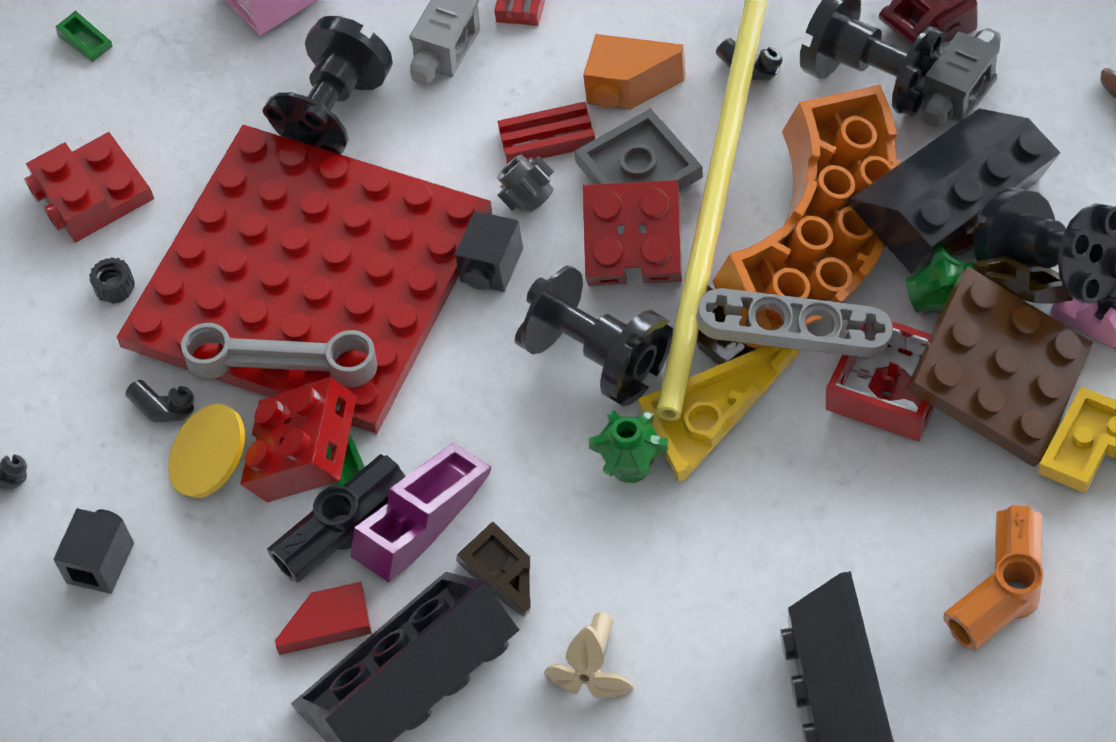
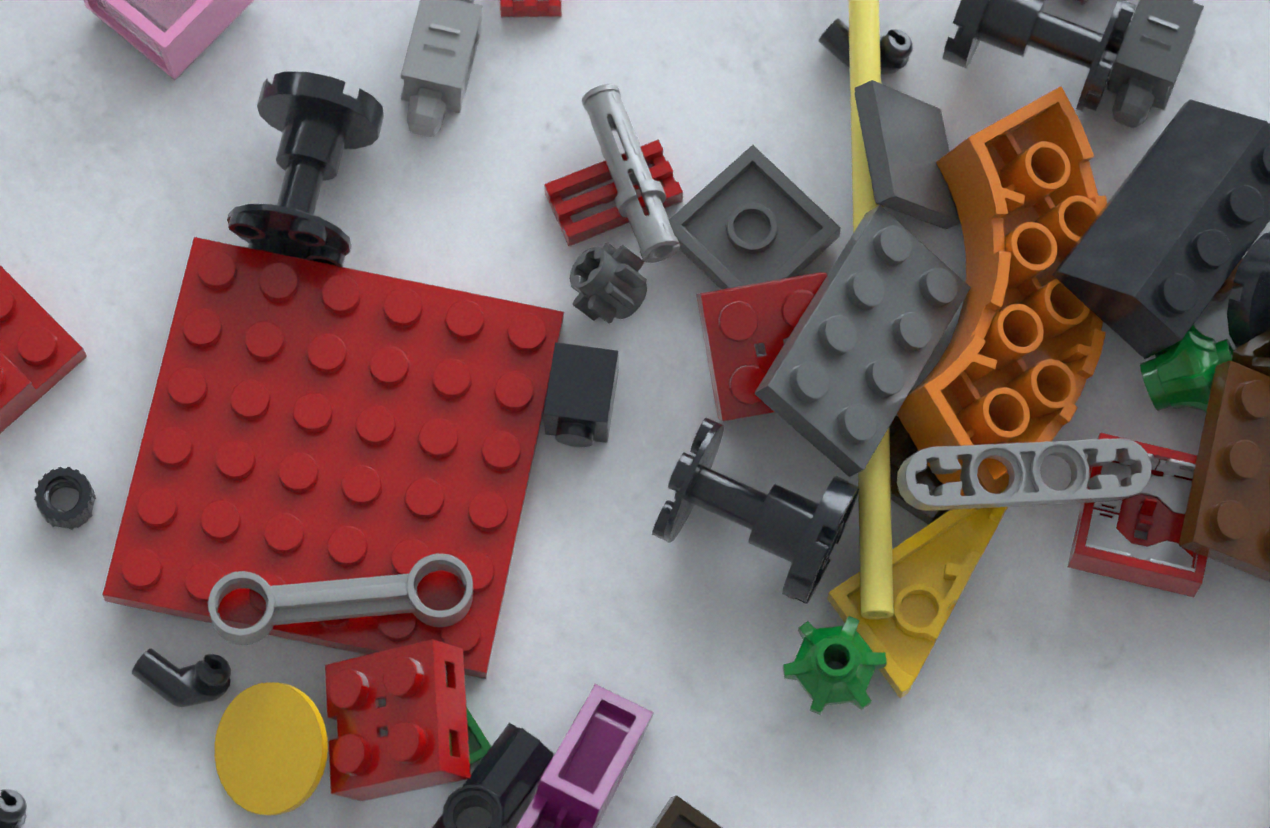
camera: 20 degrees left, 15 degrees up
(564, 148) = (652, 231): none -> light grey pin
(631, 70) = (710, 86): orange slope -> none
(693, 227) = (863, 341): none -> dark grey plate
(755, 120) = (902, 149): none -> dark grey tile

